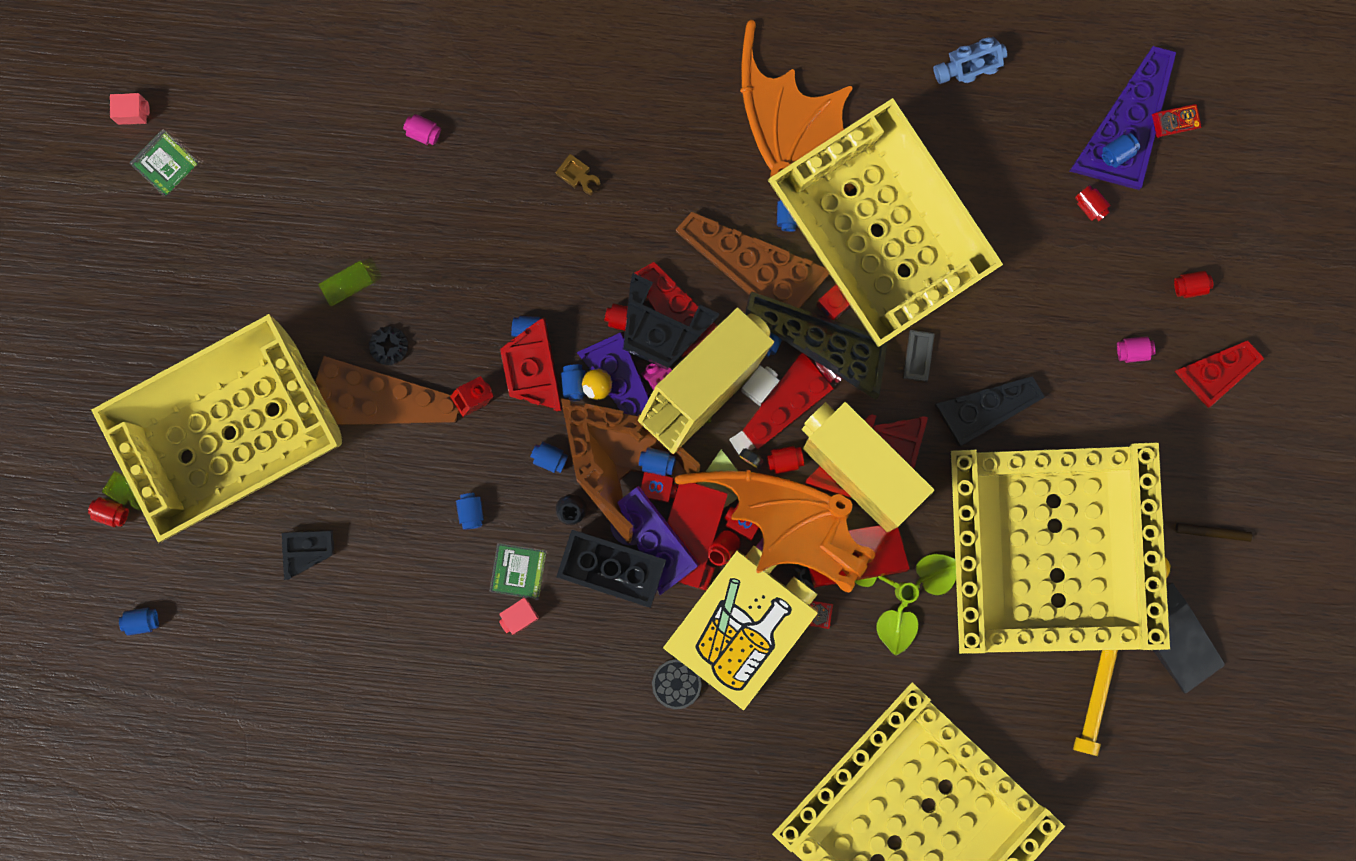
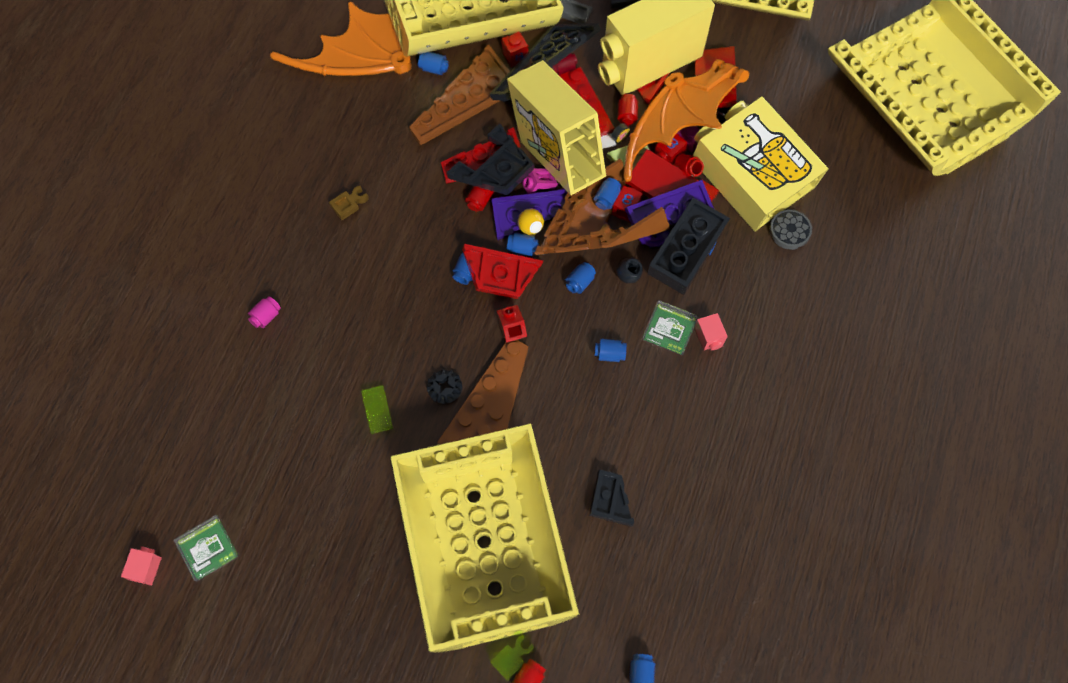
camera: 80 degrees left, 15 degrees down
(900, 628) = (741, 36): lime plant -> none

